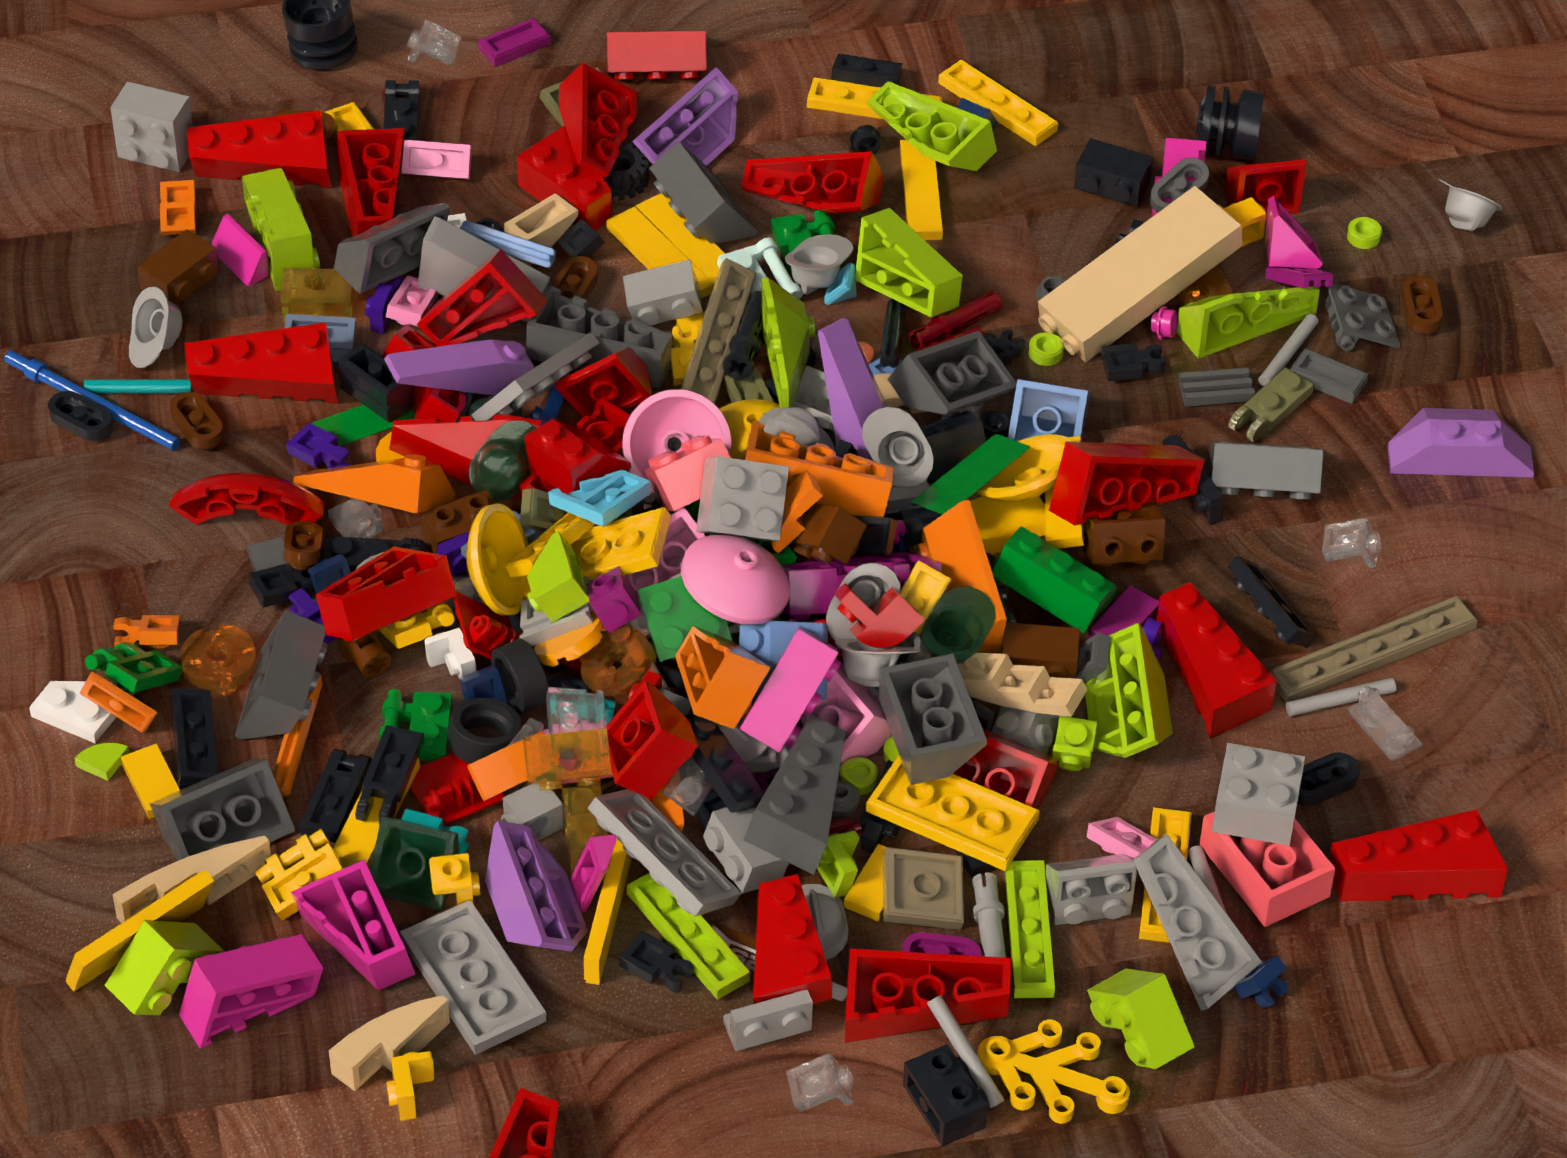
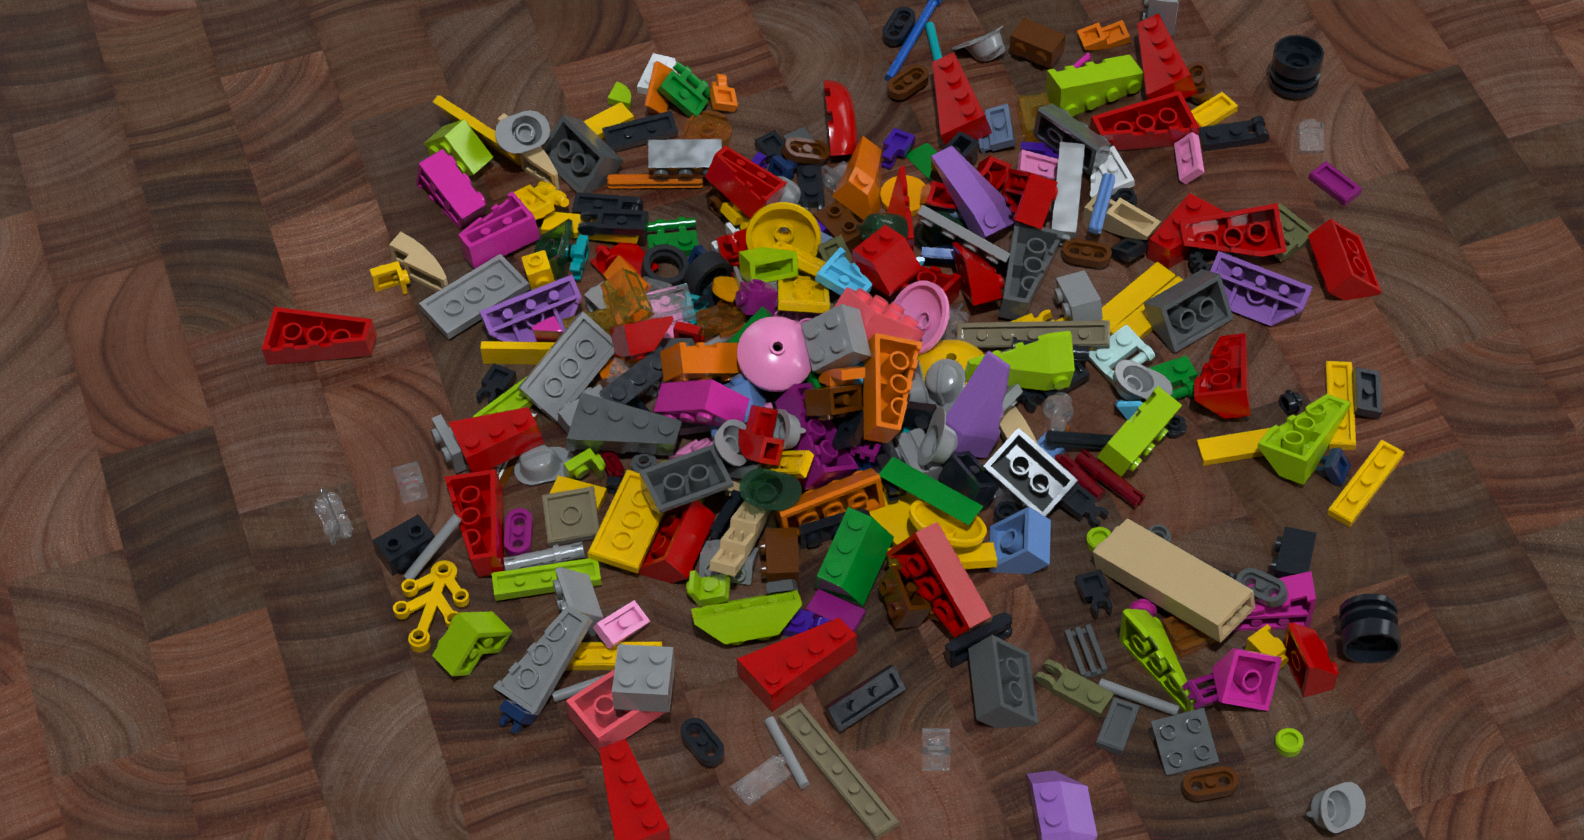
camera: 85 degrees right, 5 degrees up
(189, 851) = (522, 132): none -> light grey piece

